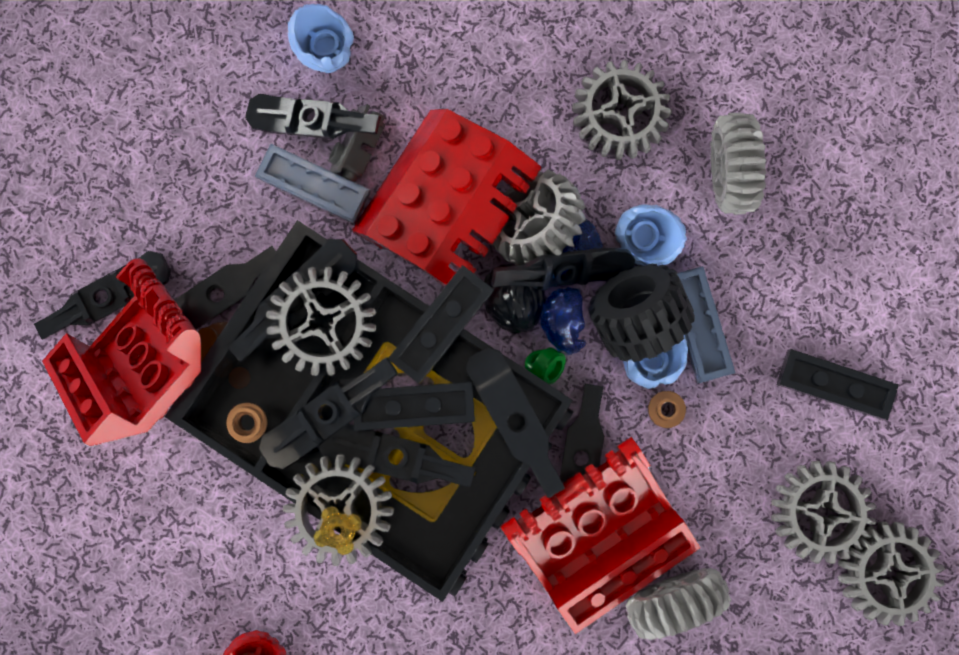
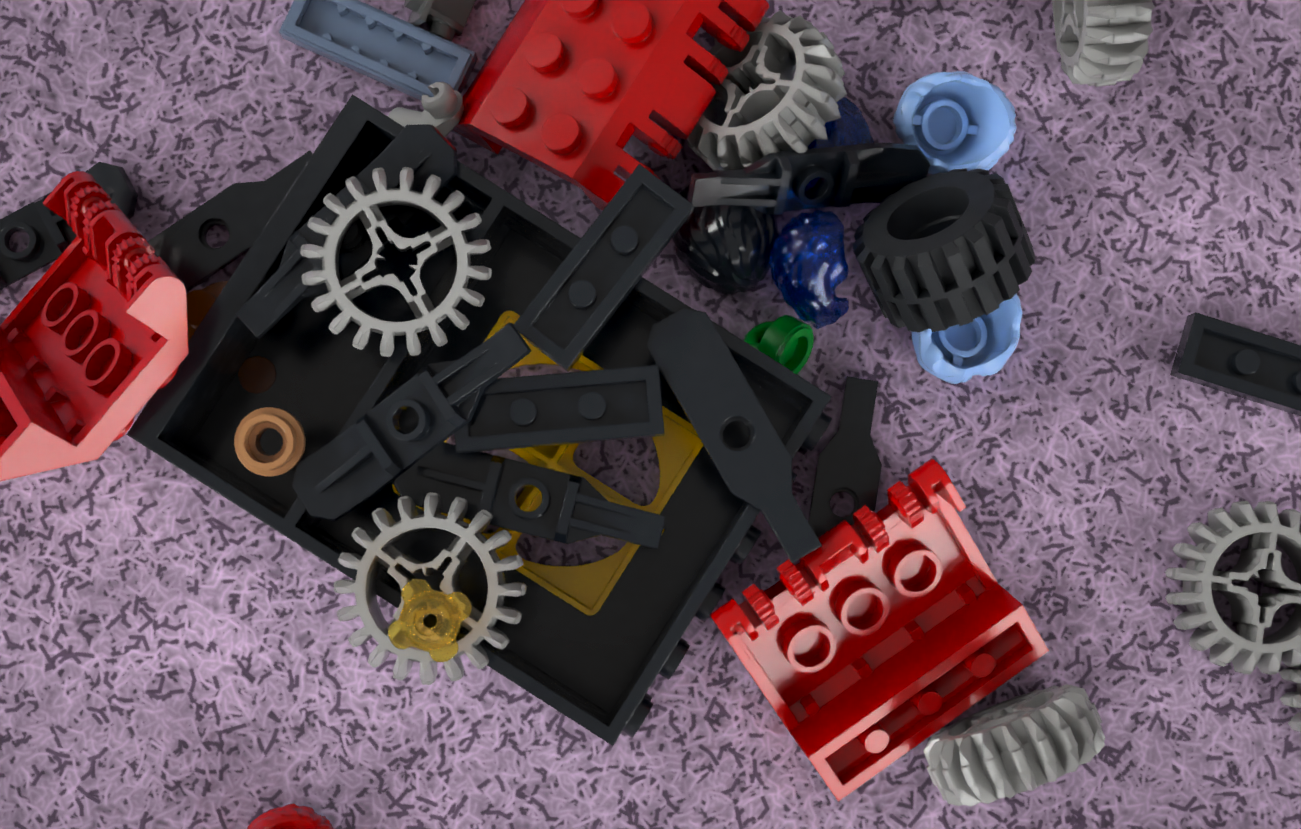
camera: 10 degrees left, 0 degrees up
(345, 229) = (441, 111): none -> light grey arm
(656, 415) = (967, 423): medium nougat plate -> none
(706, 338) = (1051, 299): sand blue plate -> none

